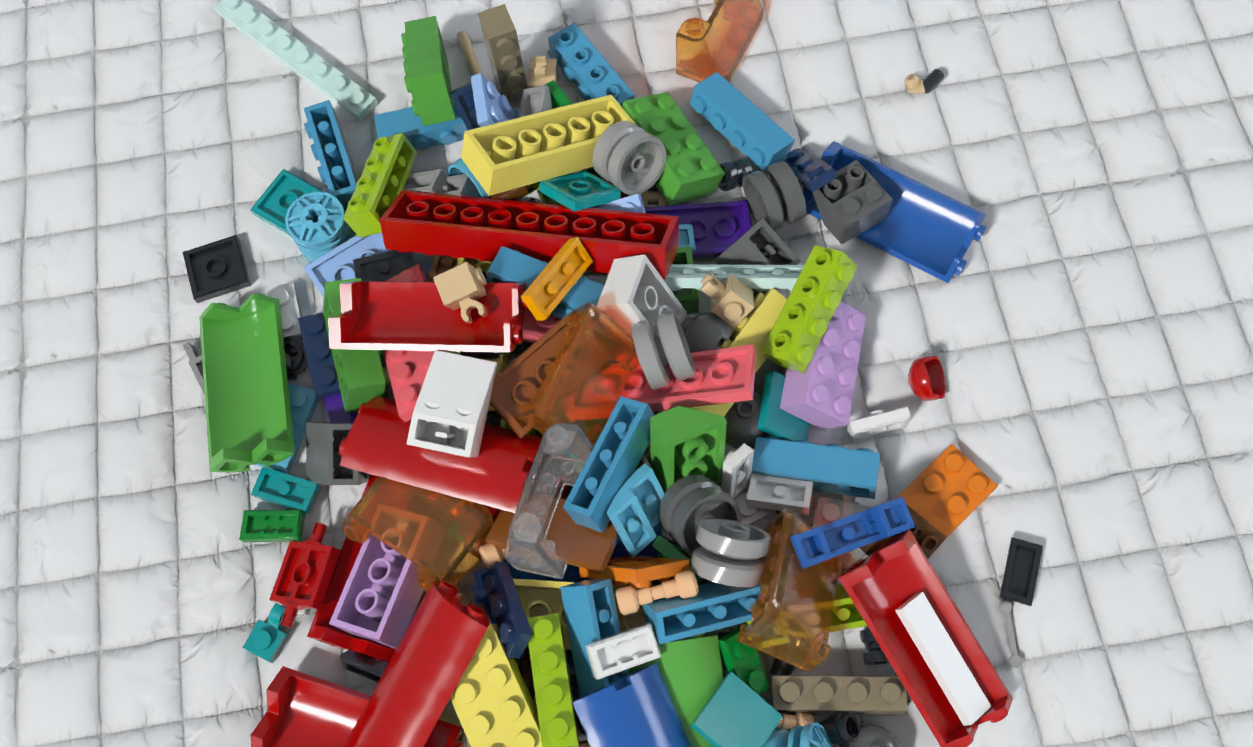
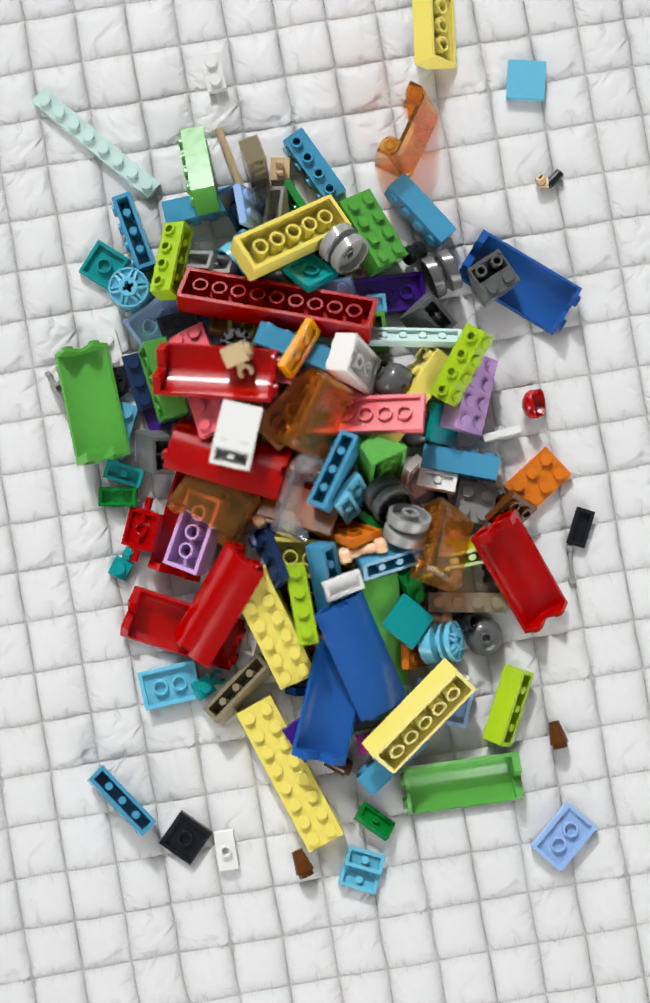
camera: 10 degrees left, 20 degrees up
(216, 269) = (59, 315): black tile -> none
(362, 665) = (184, 584): black tile -> none
(663, 350) = (366, 400): light grey wheel -> none
(729, 299) = (410, 356): tan brick -> none
(809, 169) = (465, 253): dark blue plate -> none
(852, 532) = (480, 511): blue slope -> none
(943, 658) = (528, 582): white tile -> none

